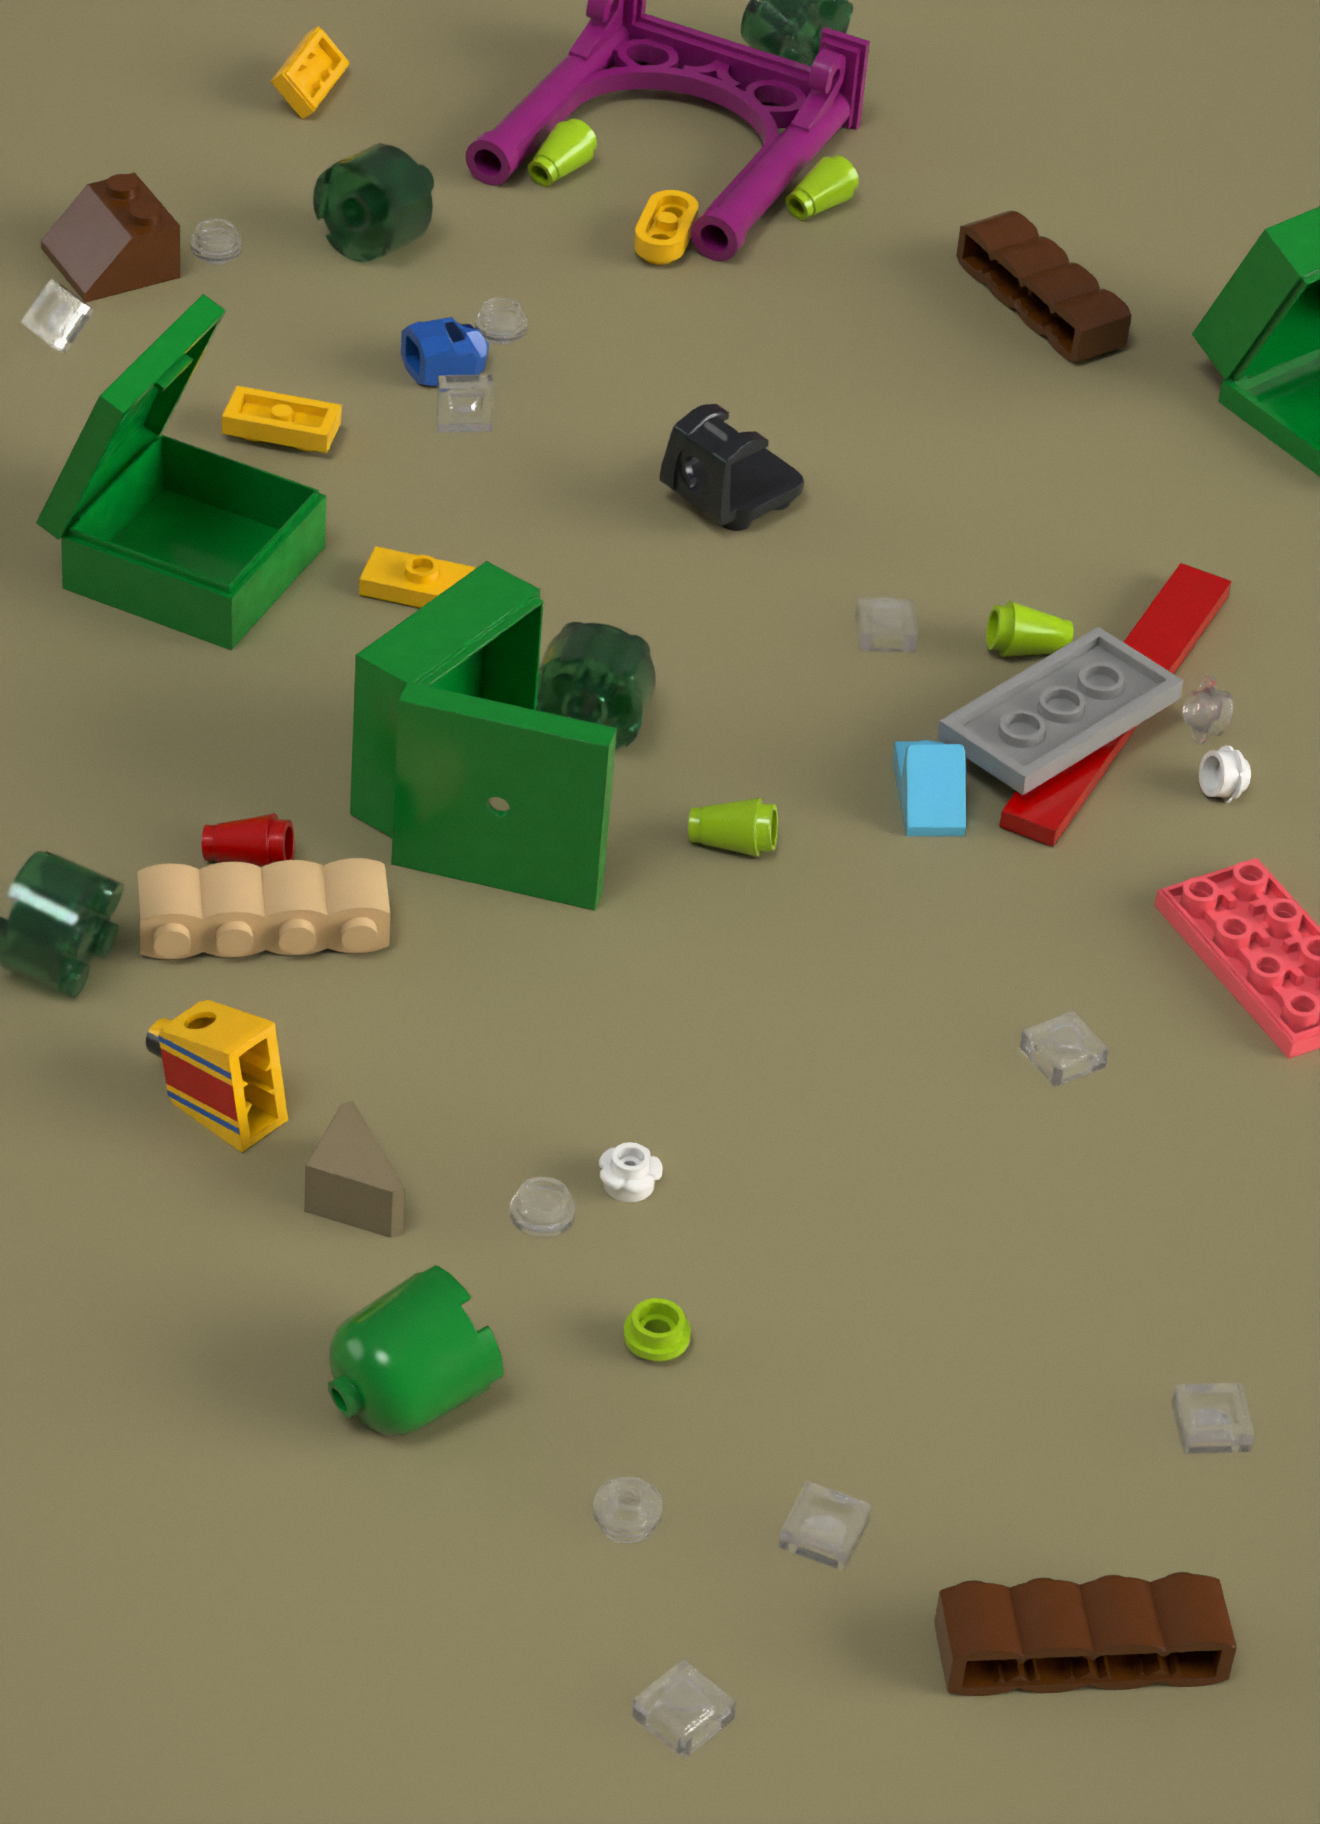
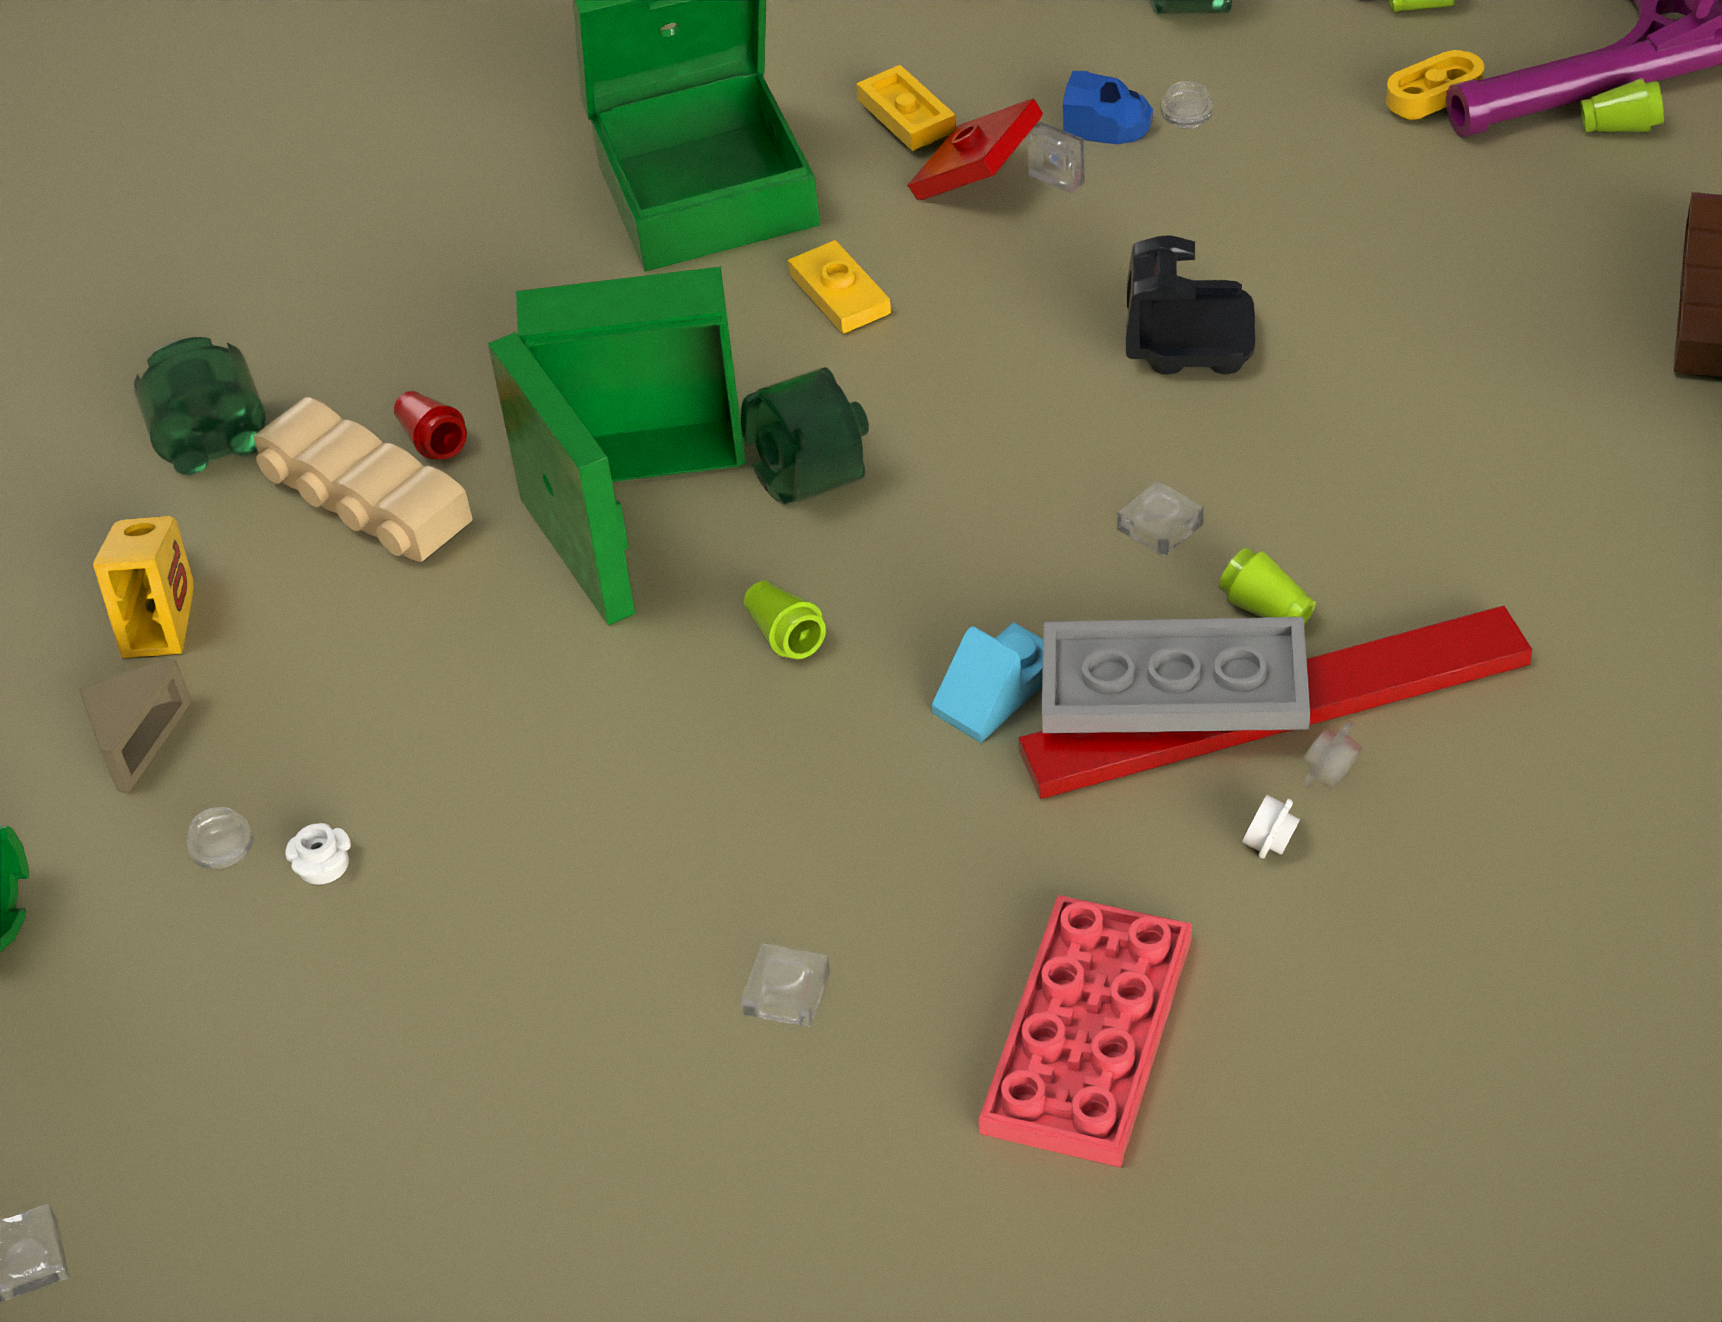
camera: 55 degrees right, 5 degrees up
(403, 423) = (976, 150): none -> red plate
(657, 1330) = (151, 996): lime plate -> none

